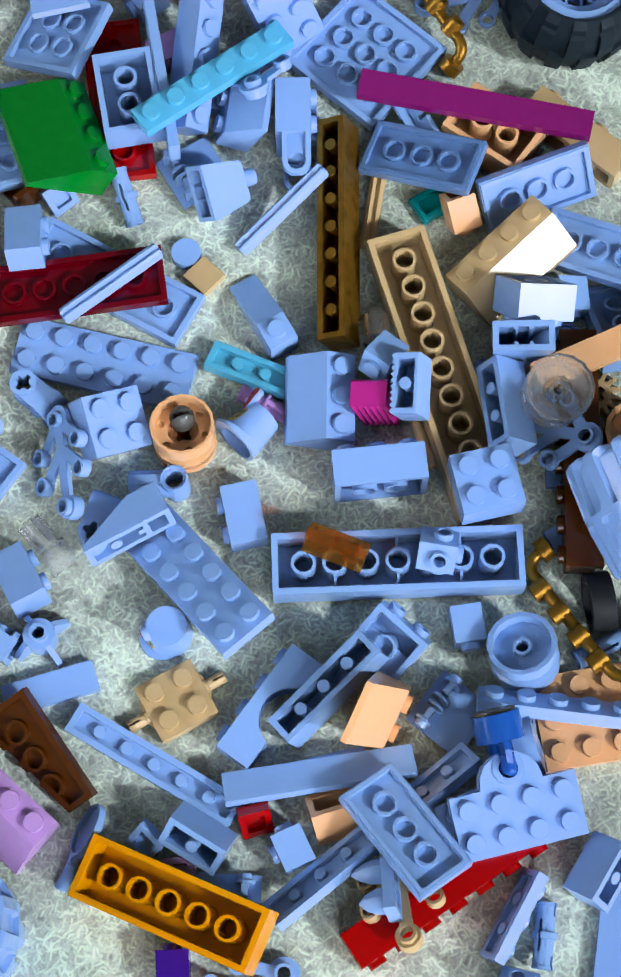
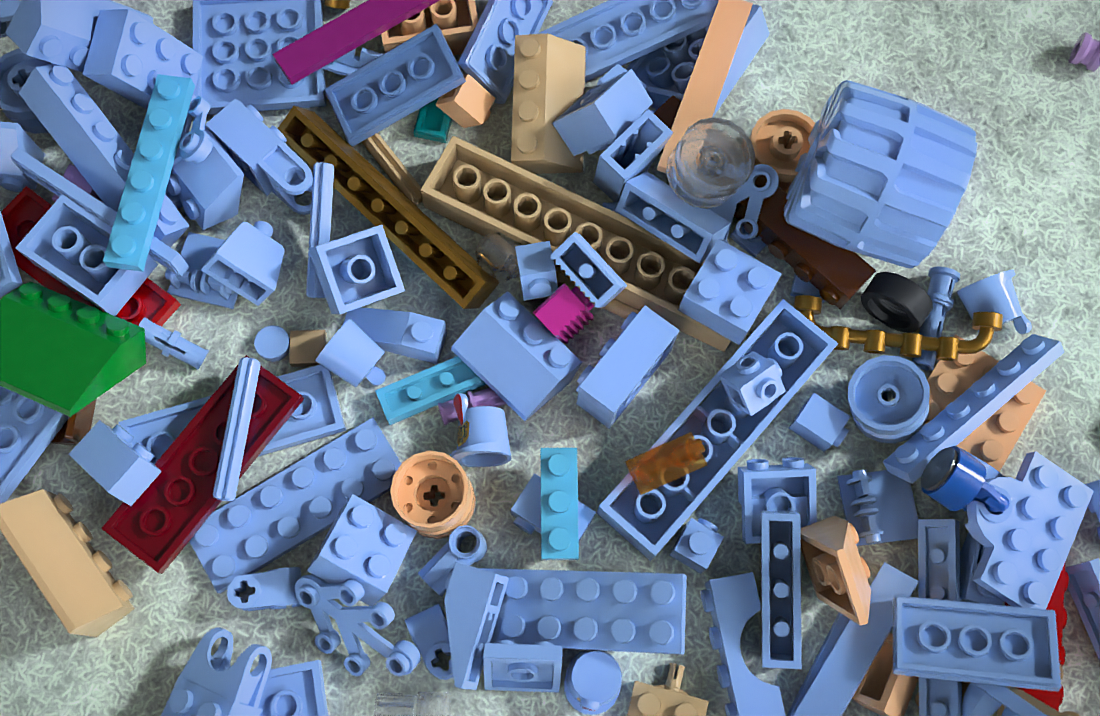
camera: 50 degrees left, 0 degrees up
(58, 201) = (111, 403): light blue plate -> none
(131, 580) = (522, 666): none -> light blue plate
(183, 422) = (428, 487): dark grey hinge -> none
(222, 305) = (353, 356): none -> light blue hat
(250, 509) = (559, 504): none -> medium azure plate
(277, 254) = (356, 270): none -> light blue brick
(309, 618) = (697, 544): none -> light blue brick

